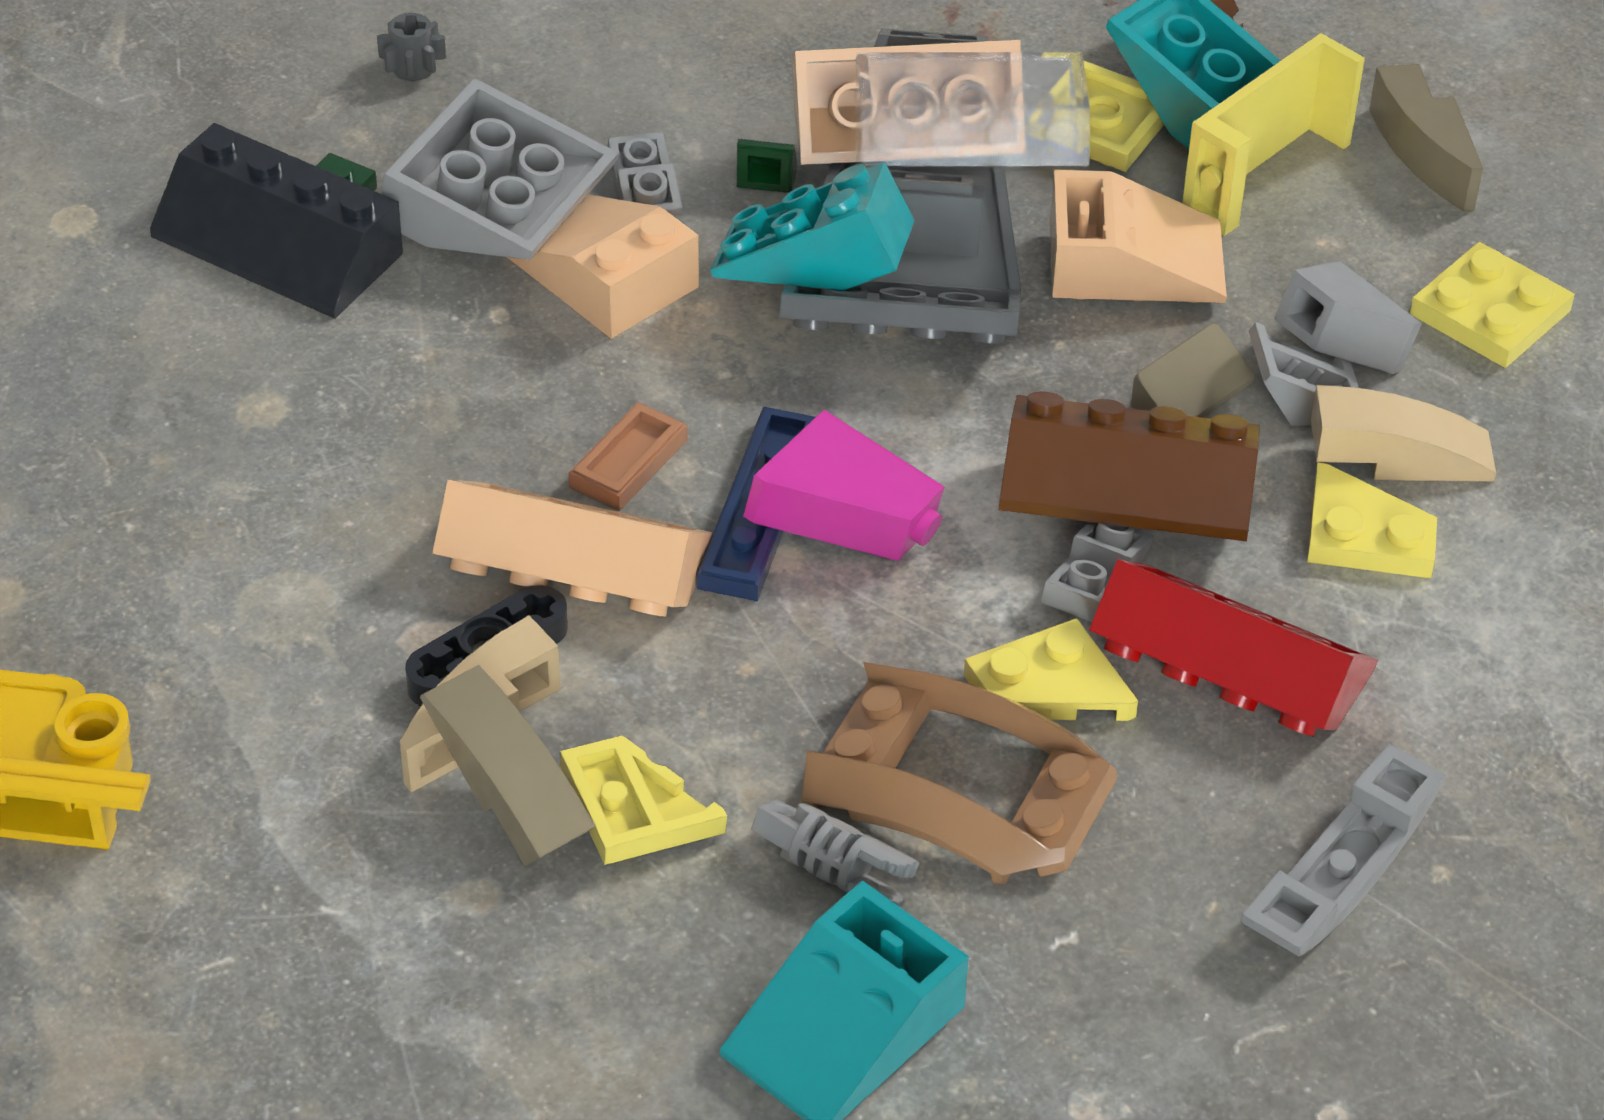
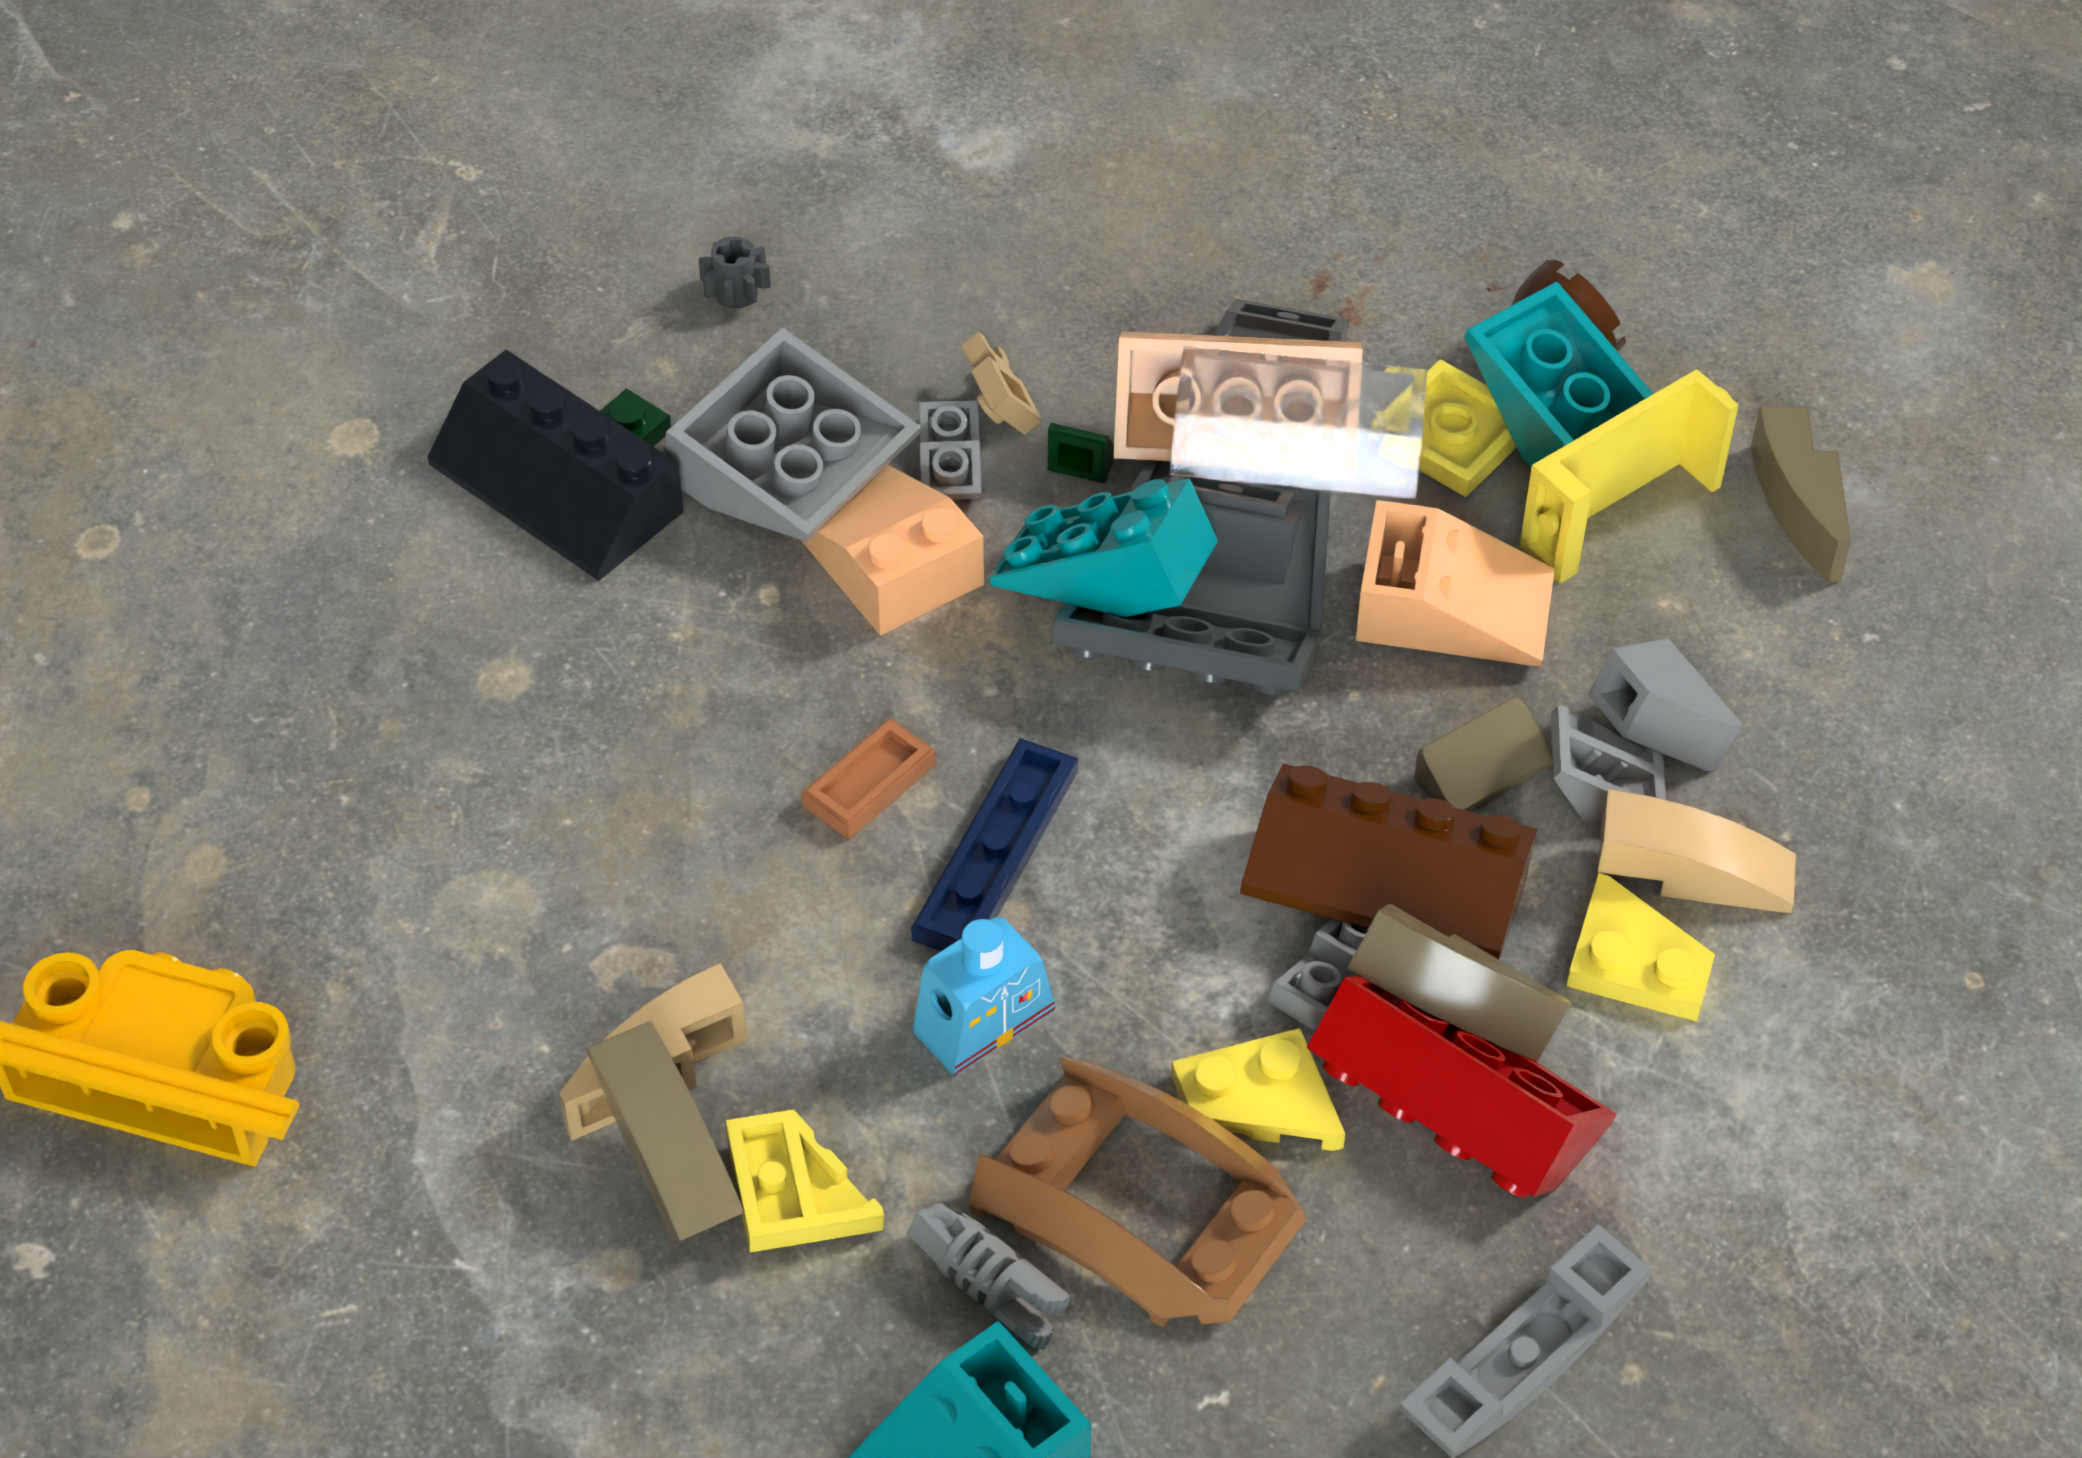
camera: 10 degrees right, 5 degrees up
(439, 655) = (689, 959): black beam -> none
(569, 544) = (785, 878): light nougat slope -> none
(684, 125) = (1002, 392): none -> tan plate
(778, 617) = (980, 994): none -> medium azure torso
(845, 492) = (1081, 854): dark pink slope -> none
(1217, 560) = (1458, 983): none -> dark tan slope
(1492, 304) = (1833, 701): light yellow plate -> none

